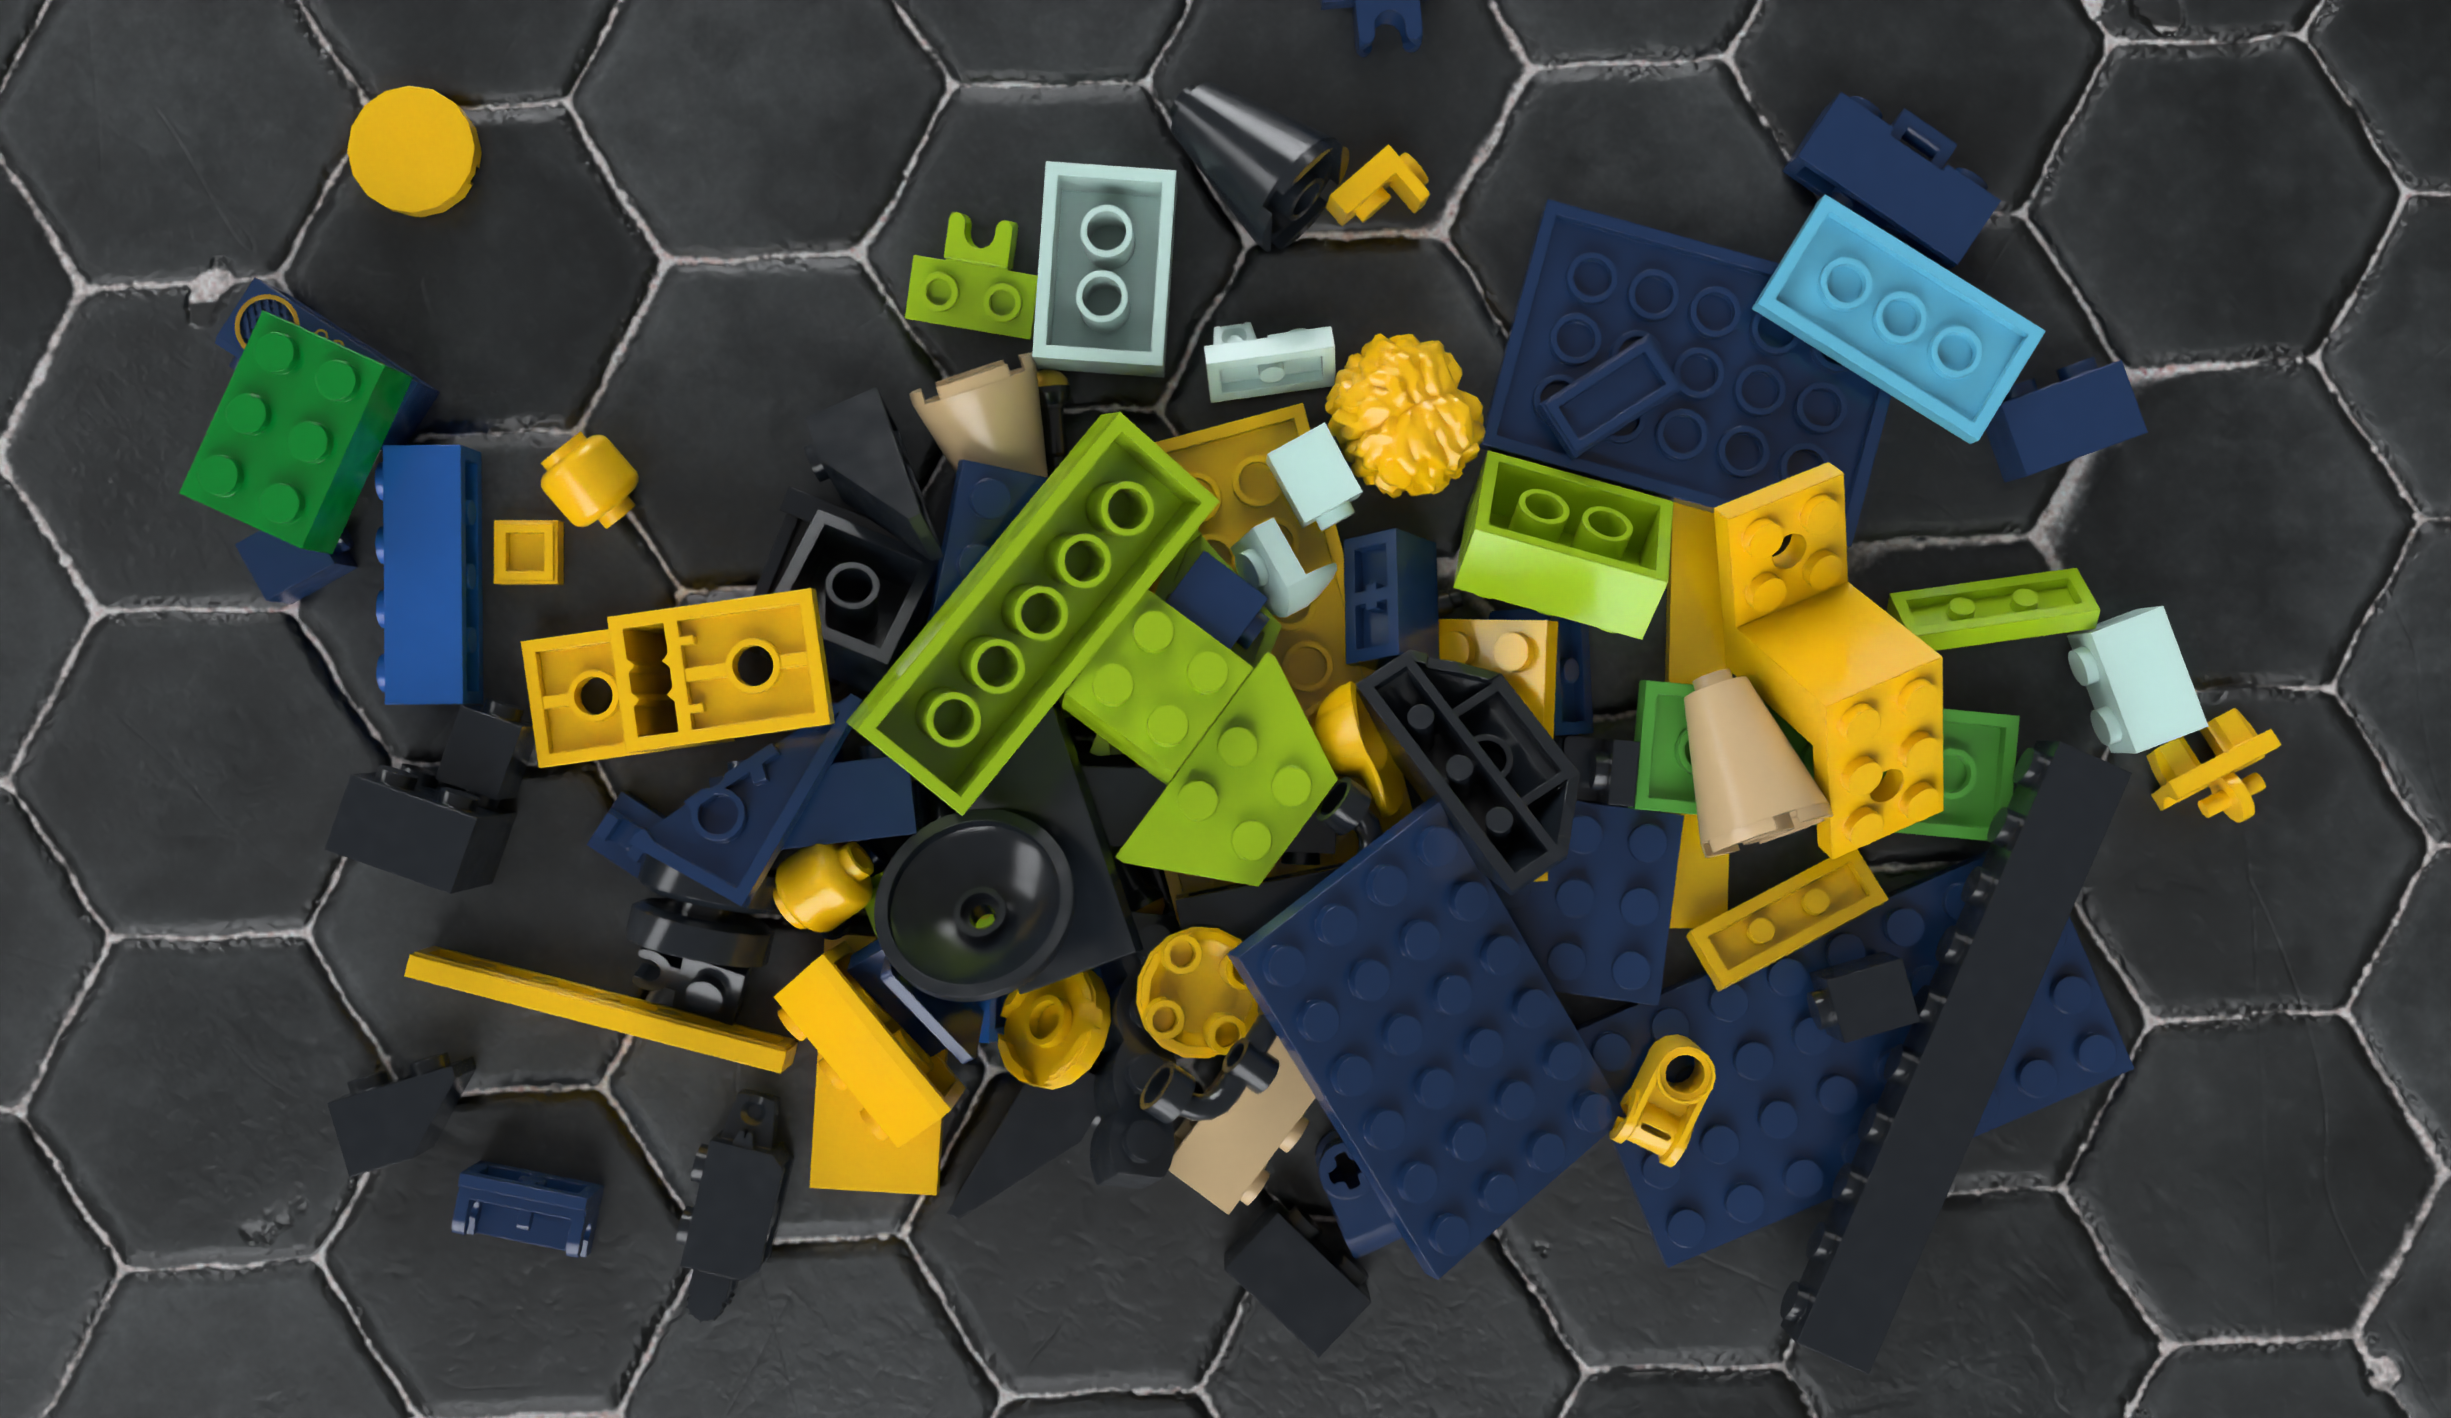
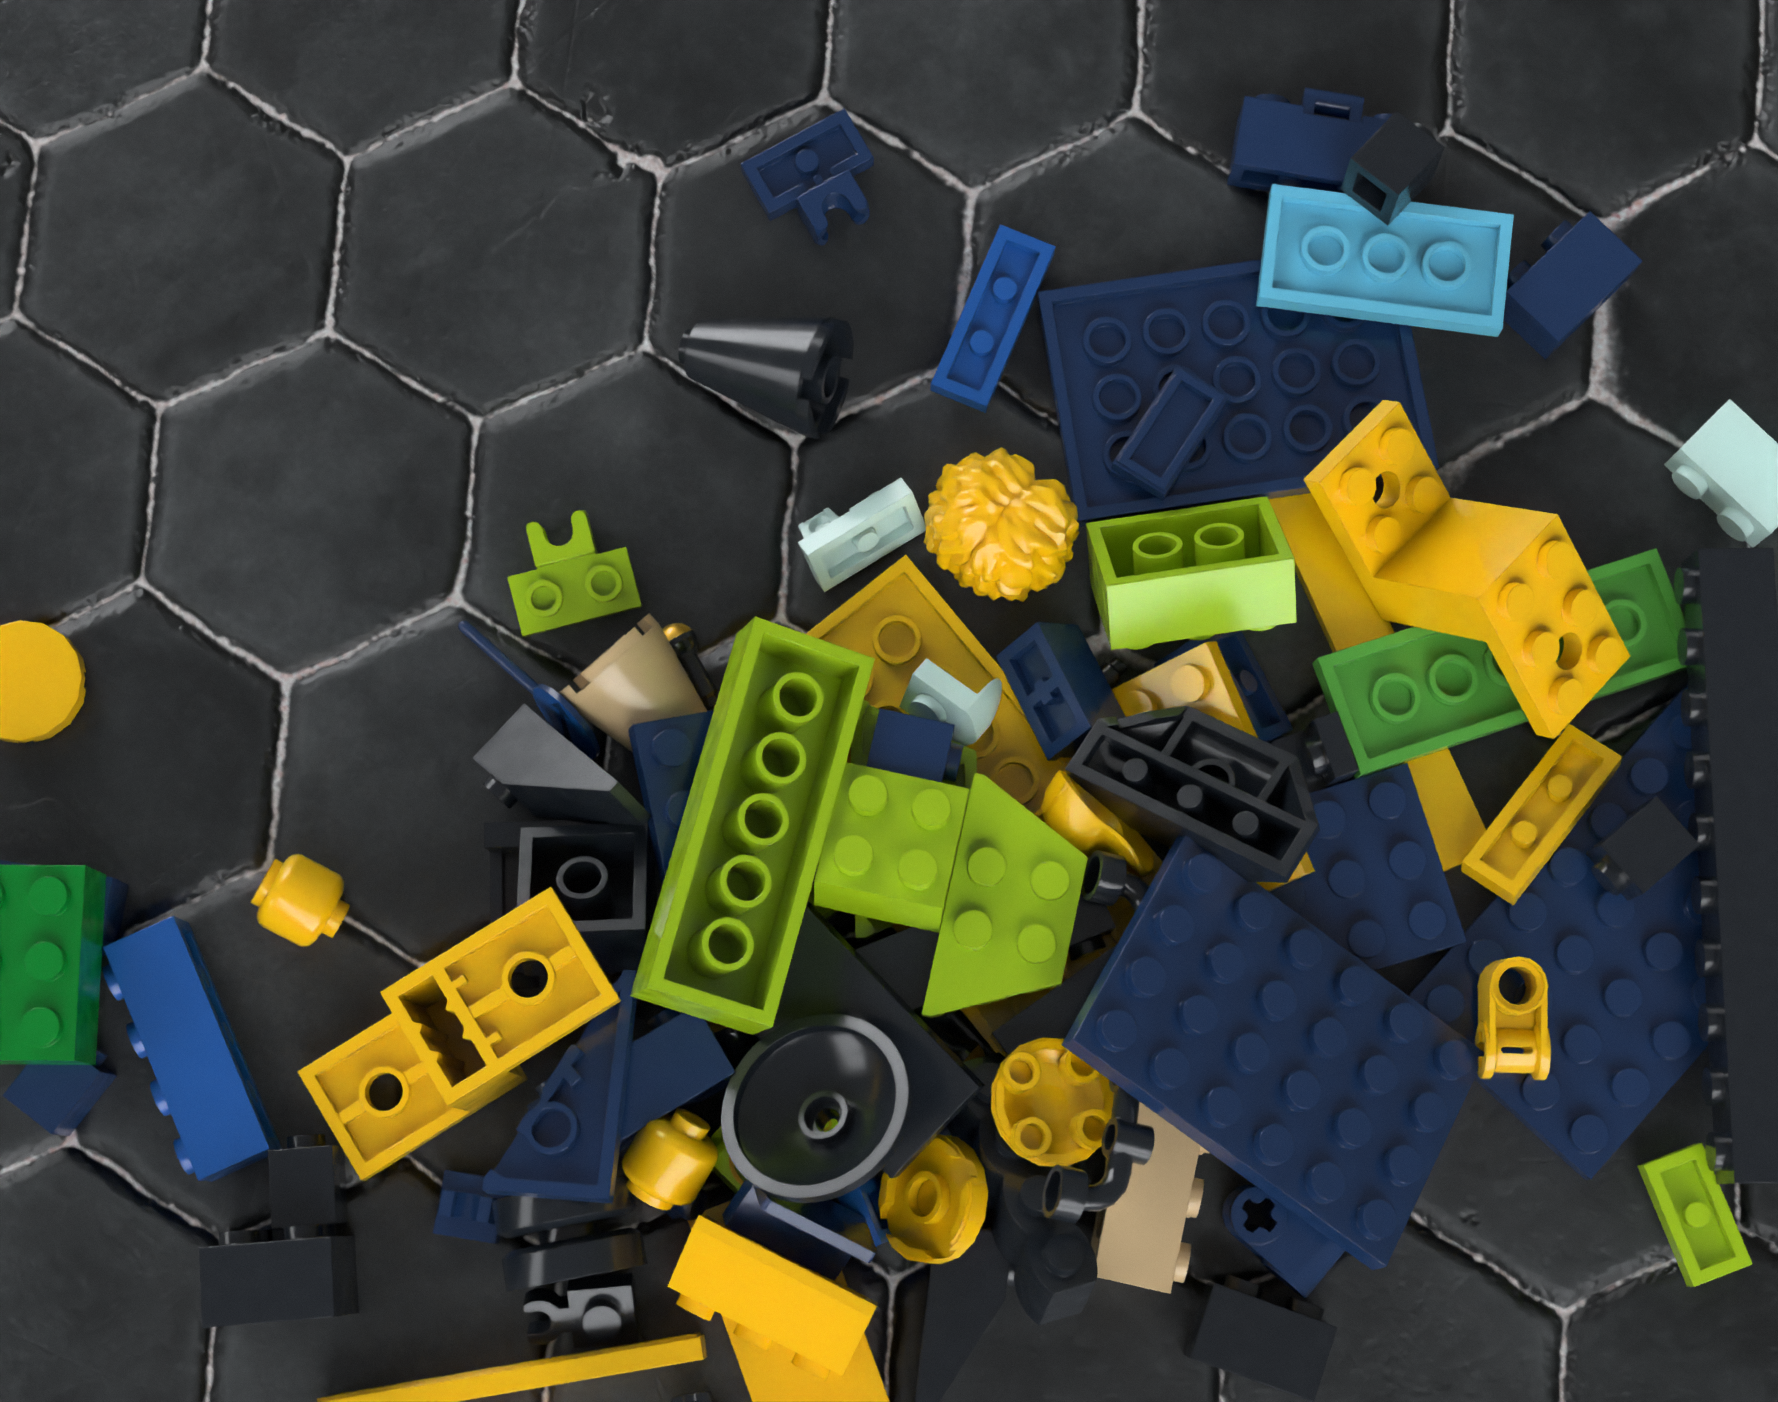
camera: 20 degrees left, 10 degrees down
(528, 552) = (269, 991): yellow tile -> none
(902, 401) = (553, 706): none -> dark blue piece
(1105, 269) = (683, 515): light aqua brick -> none
(1315, 478) = (946, 611): light aqua brick -> none
(1366, 189) = (878, 351): yellow bracket -> none
(1492, 205) = (992, 318): none -> blue plate
(1744, 768) = (1440, 693): tan cone -> none
(1746, 1341) = (1694, 1215): none -> lime plate
(1951, 232) = (1392, 167): none -> black brick
(1997, 609) = (1595, 464): lime plate -> none

